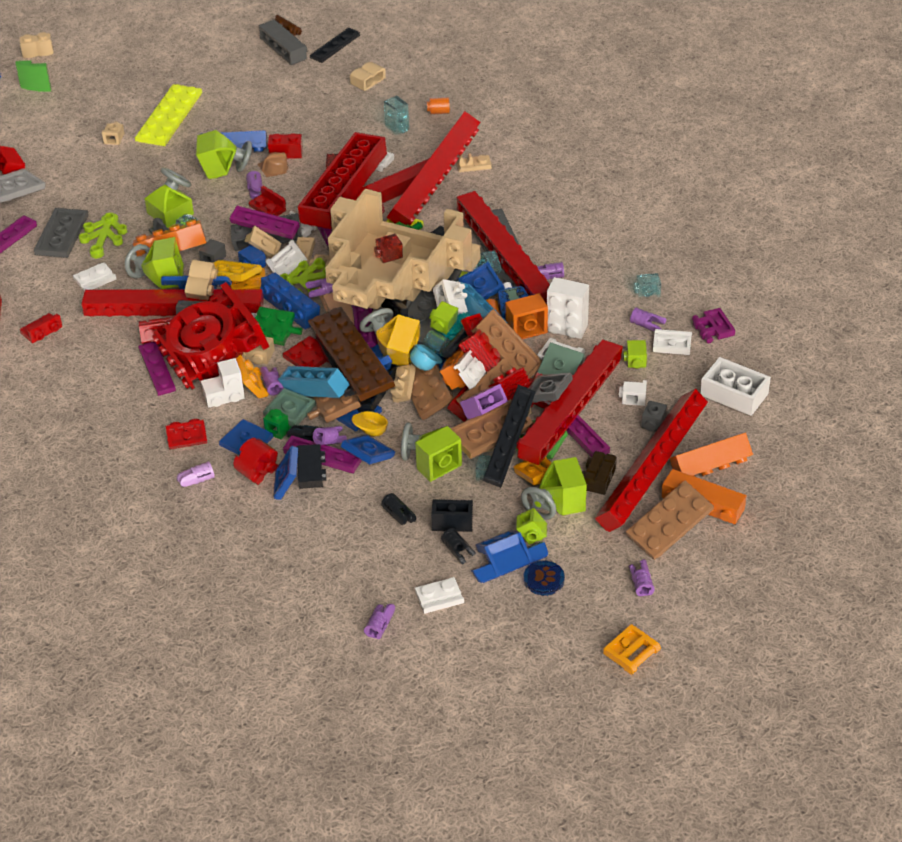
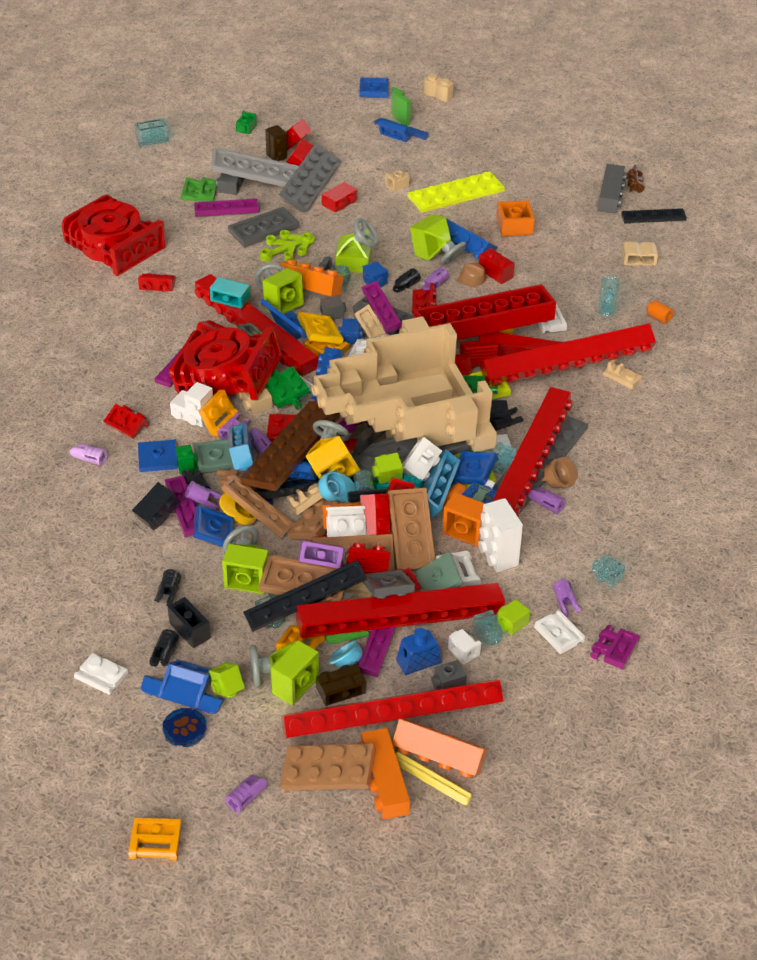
camera: 45 degrees right, 0 degrees up
(42, 173) = (309, 178): none -> dark grey plate
(52, 97) = (399, 131): none -> blue plate
(88, 173) = (339, 197): none -> red brick
(94, 277) = (239, 271): white plate -> none
(130, 289) = (229, 292): none -> teal brick
(200, 280) = (278, 315): tan brick -> none
(207, 209) = (375, 272): none -> blue brick
(234, 198) = (406, 280): none -> black hinge
(248, 104) = (515, 218): none -> orange brick
(256, 460) = (130, 472): red brick -> none
(285, 472) = (132, 497): blue plate -> none
(379, 620) = (36, 654): medium lavender hinge -> none
(382, 411) = (257, 506): none -> medium nougat plate
(388, 248) = (415, 383): clear red brick -> none
(534, 250) = (560, 473): none -> medium nougat piece
(581, 448) = (347, 655): none -> medium azure cap
(620, 407) = (418, 652): none -> blue torso
(631, 371) = (487, 628): none -> clear light blue brick
(735, 386) = (548, 708): white brick -> none
(737, 477) = (433, 779): none -> light yellow axle

